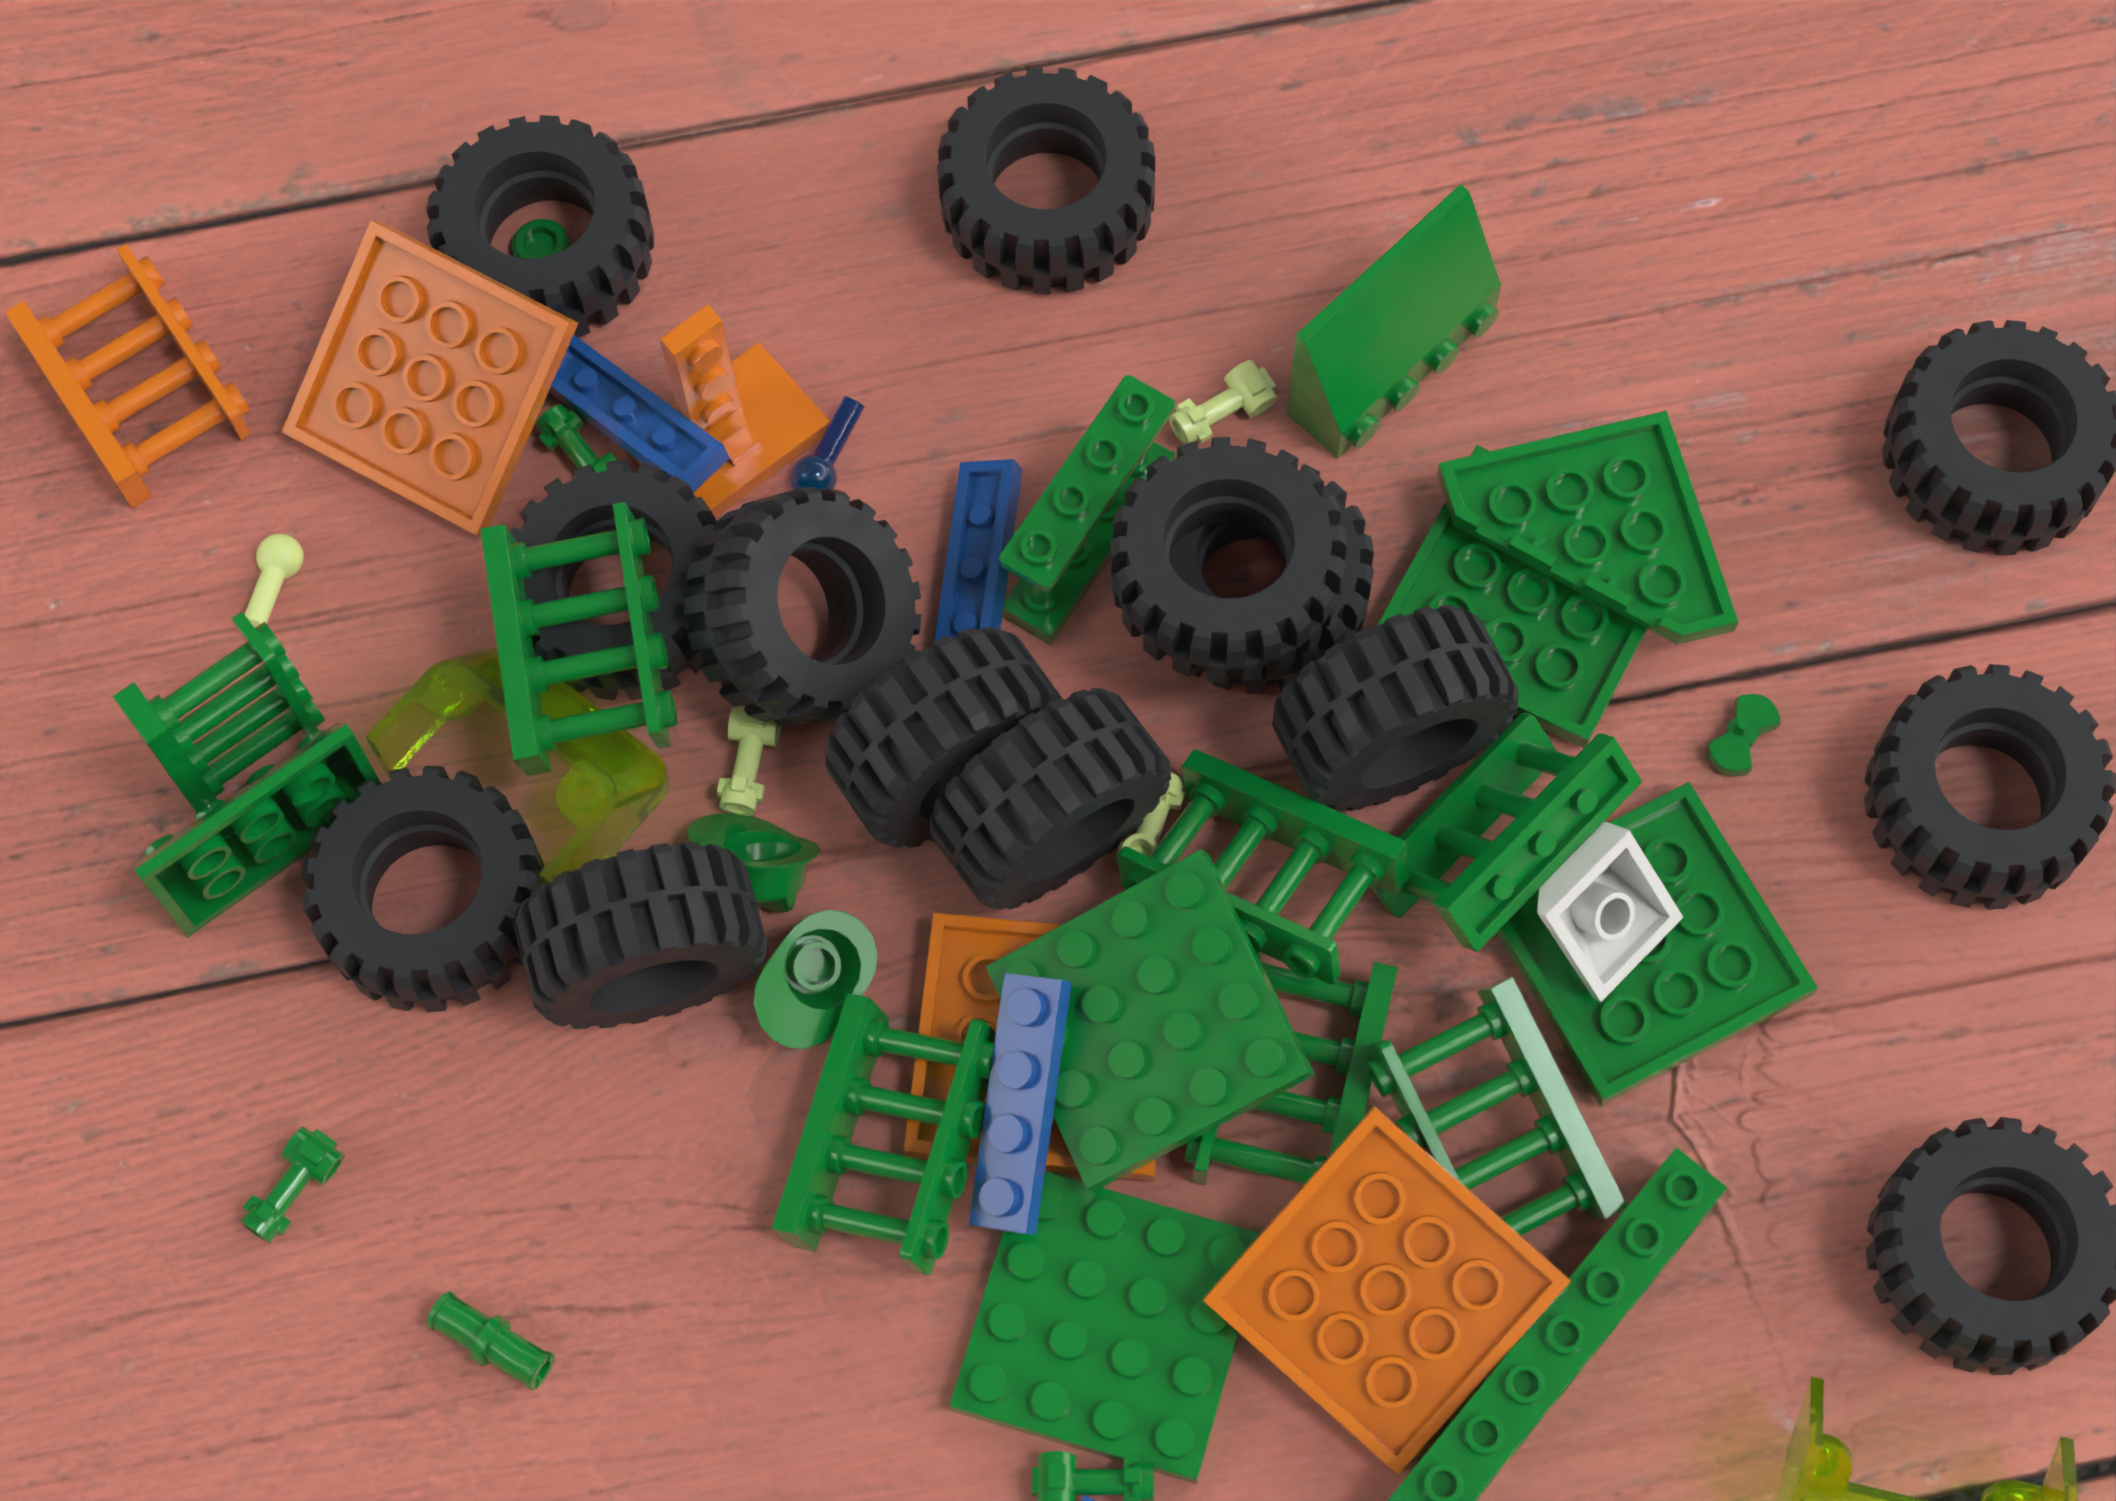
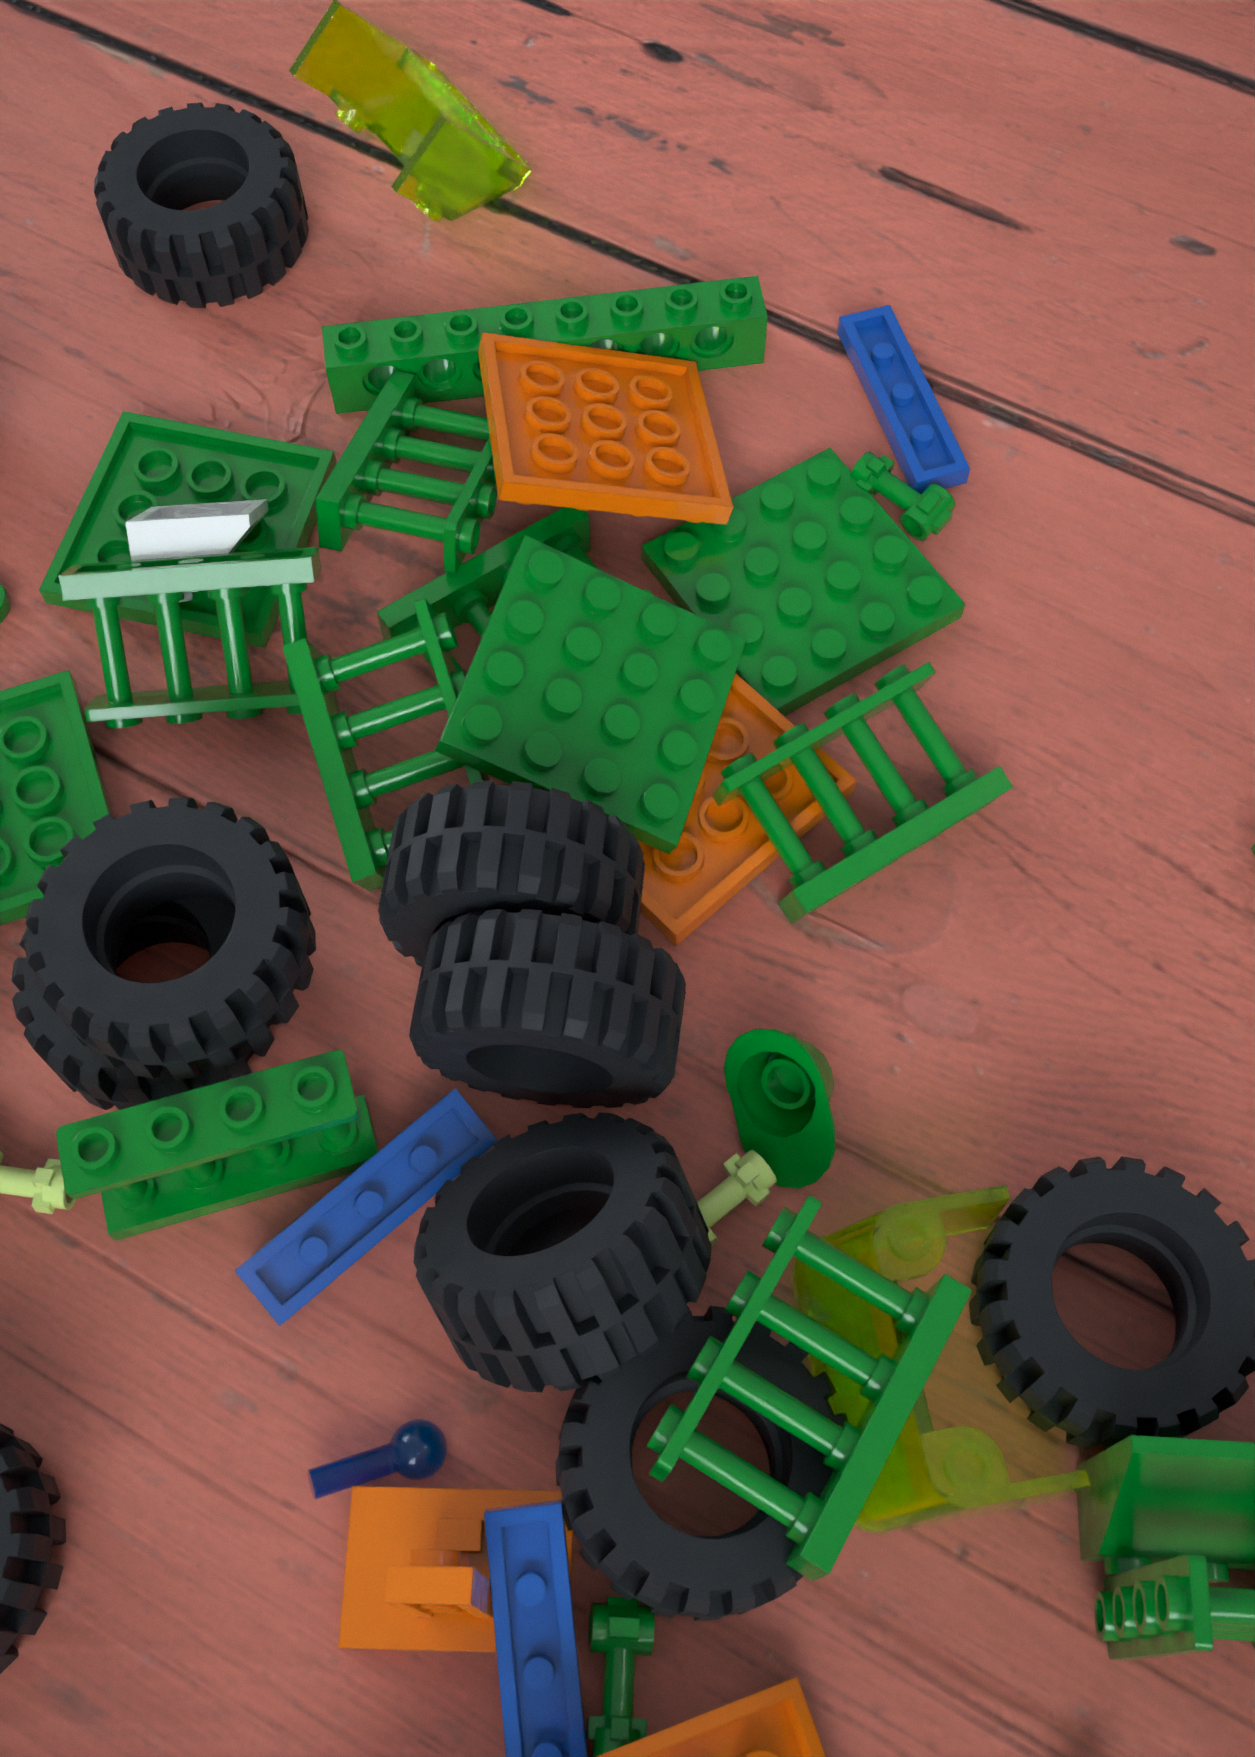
camera: 140 degrees left, 5 degrees down
(640, 935) = (965, 1051): black tyre -> none
(810, 975) = (818, 956): green piece -> none
(1020, 1103) = (740, 721): plate -> none
(1395, 707) = (179, 723): black tyre -> none

